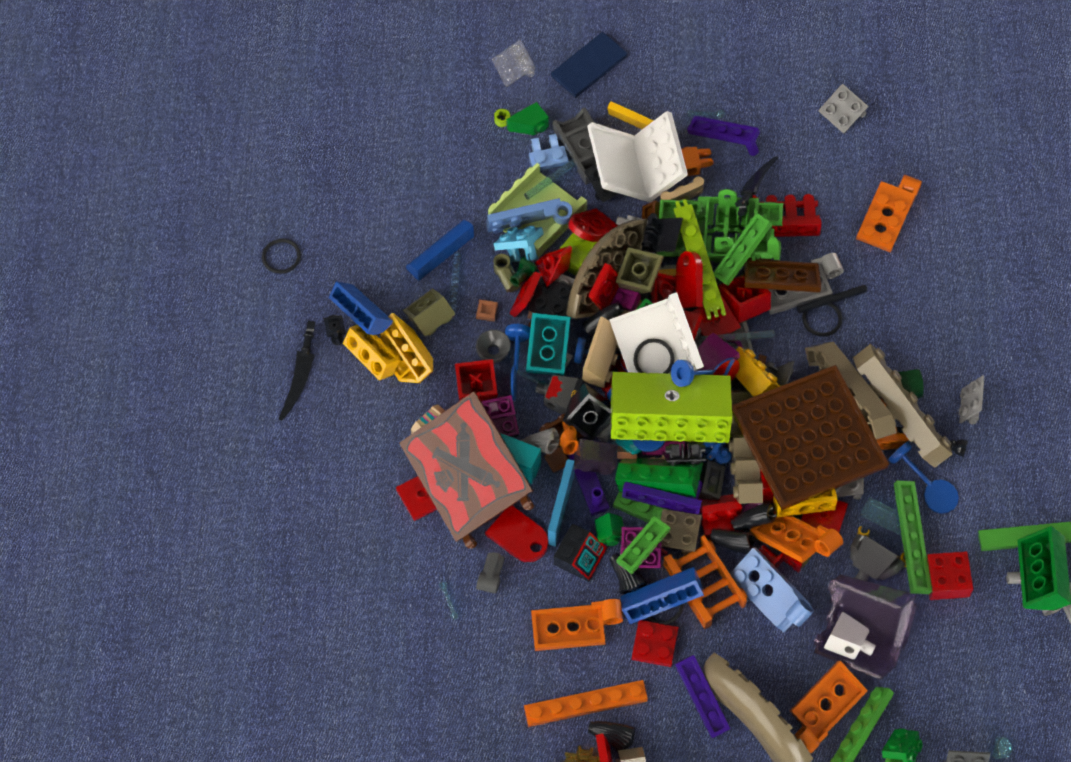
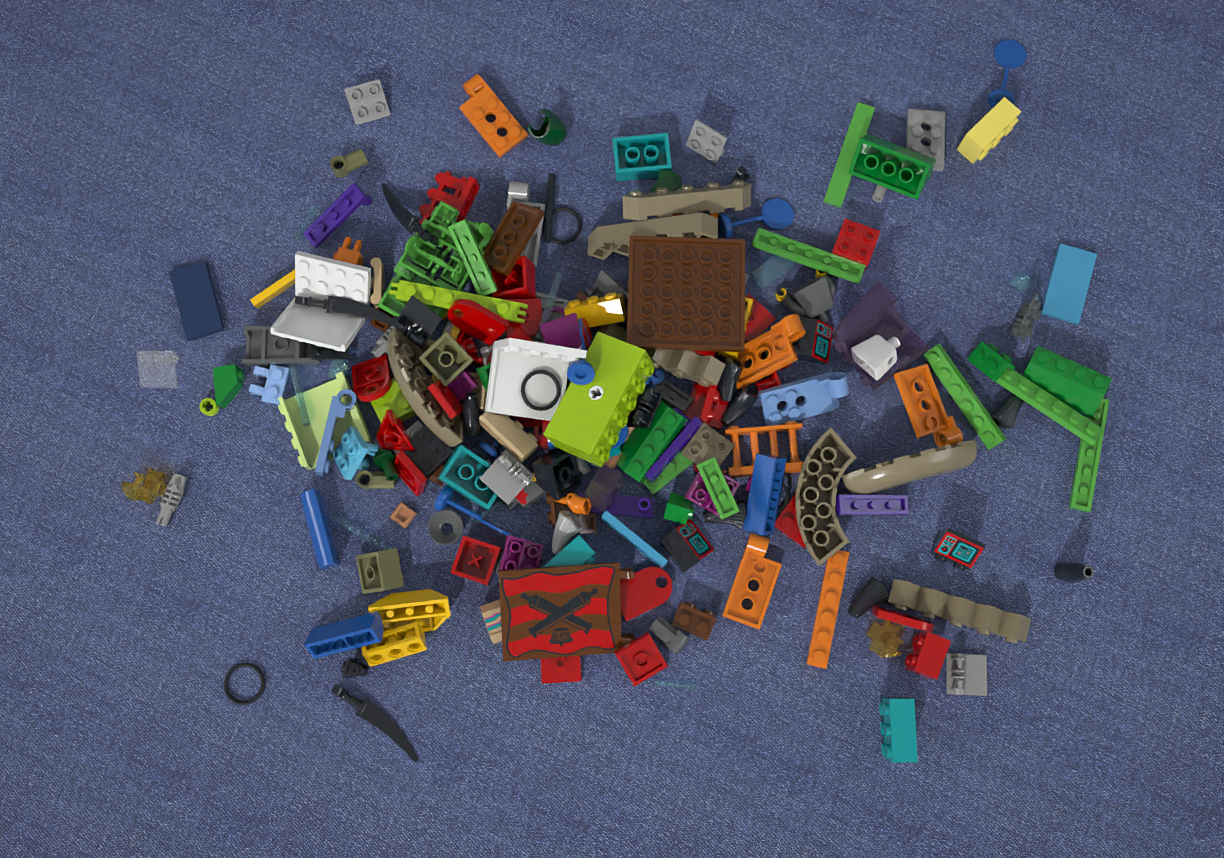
camera: 60 degrees left, 15 degrees up
(408, 126) = (171, 498): none -> light grey hinge
(416, 107) = (149, 489): none -> clear yellow piece
(457, 559) = (641, 659): none -> red plate
(514, 590) = (694, 621): none -> reddish brown bracket
(562, 369) = (506, 477): none -> light grey hinge
(591, 197) = (337, 366): none -> clear light blue plate
(645, 174) = (345, 306): none -> black sword
(681, 637) = (817, 496): none -> dark tan brick
(779, 120) = (350, 161): none -> olive piece
(824, 570) = (815, 343): none -> slope
(904, 268) = (552, 130): none -> dark green piece
(925, 350) = (641, 156): none -> teal brick

